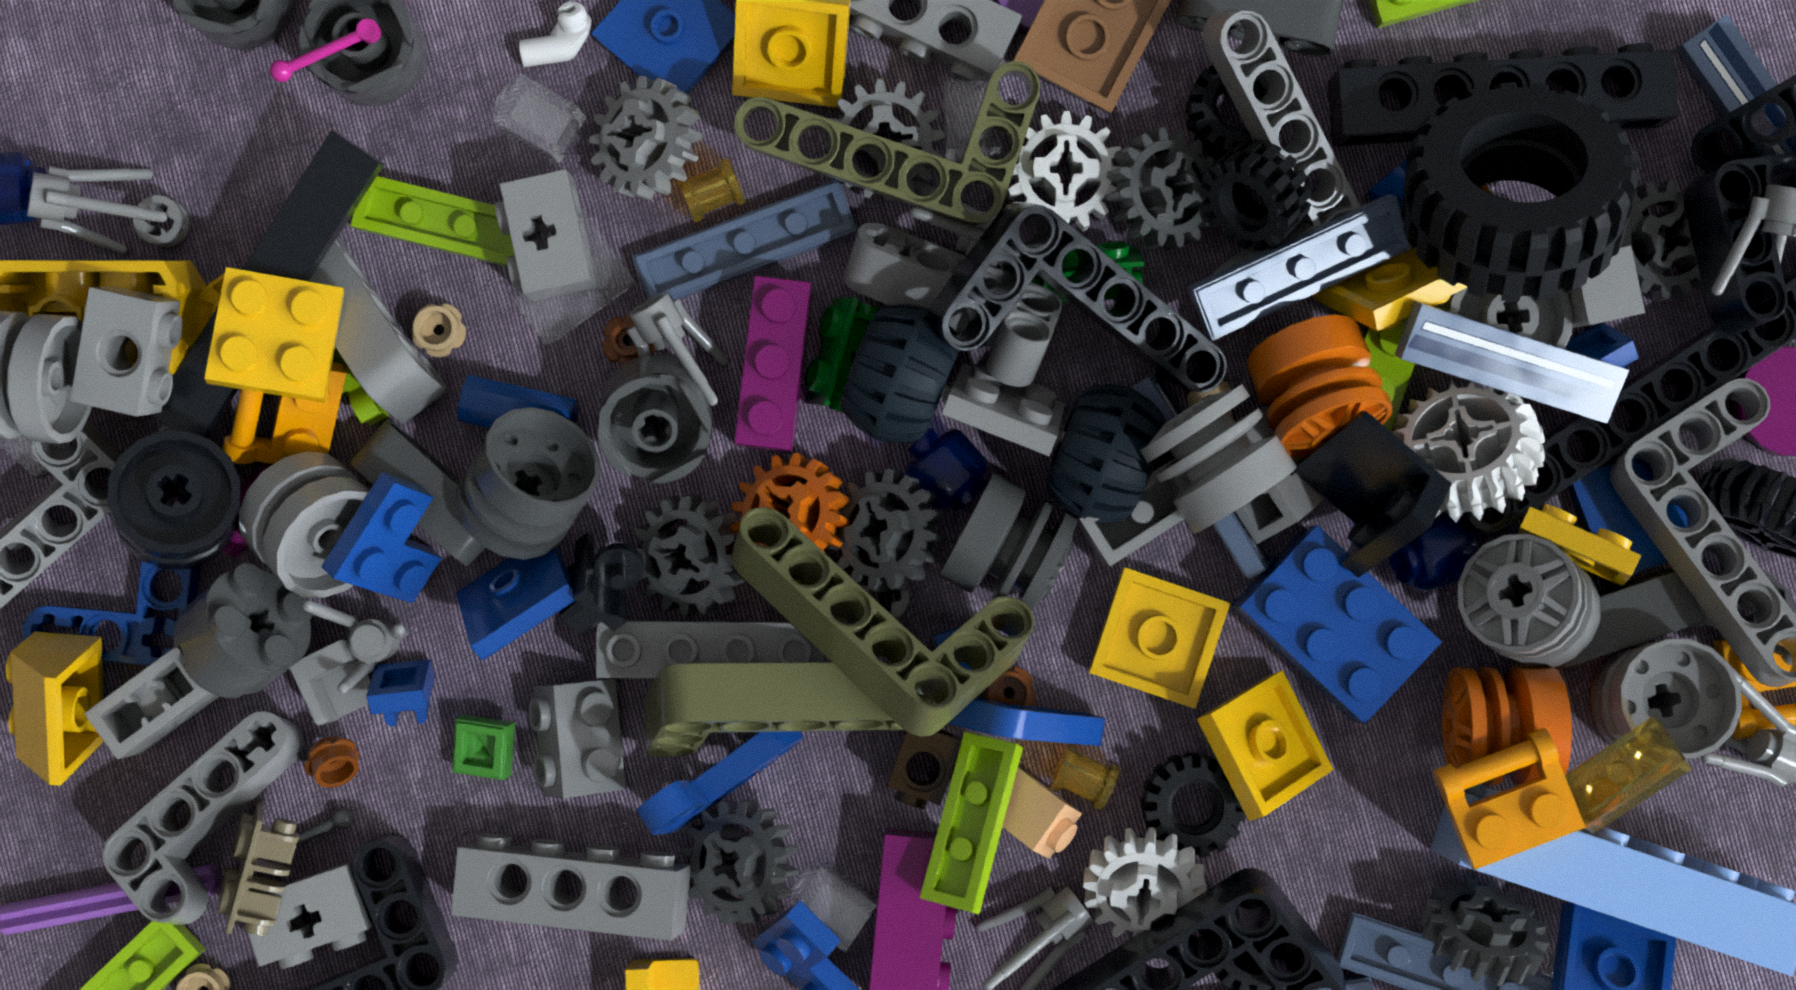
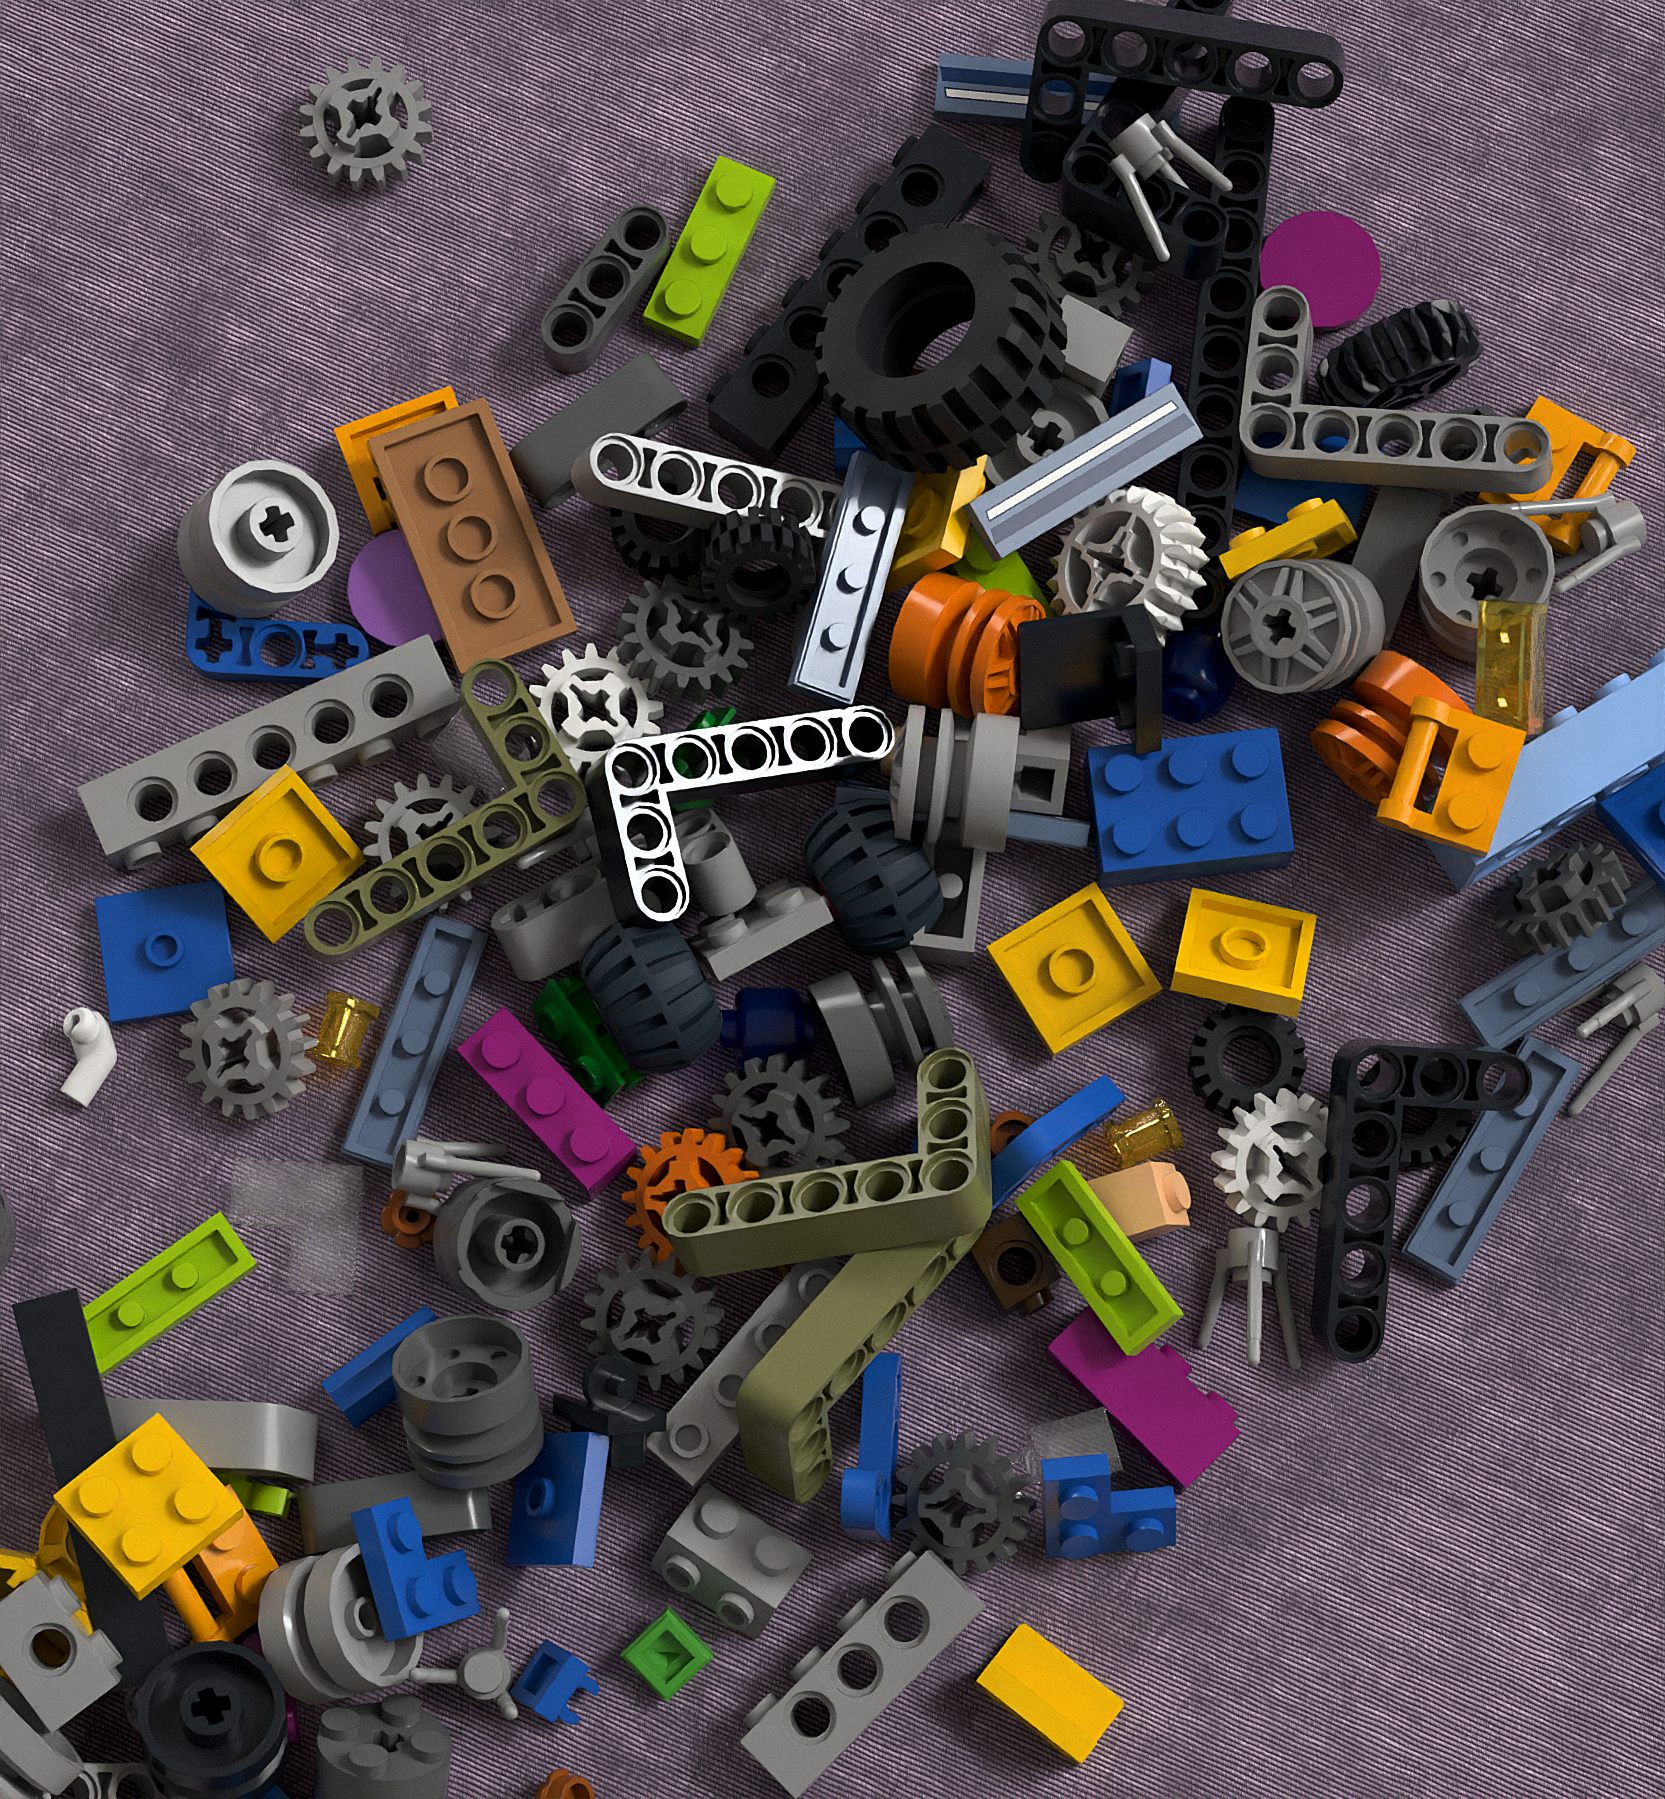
camera: 55 degrees left, 10 degrees down
(318, 682) = (490, 1741): light grey panel -> none
(425, 323) = (252, 1362): tan plate -> none
(537, 117) = (144, 1130): clear brick -> none
(567, 261) = (241, 1172): light grey brick -> none

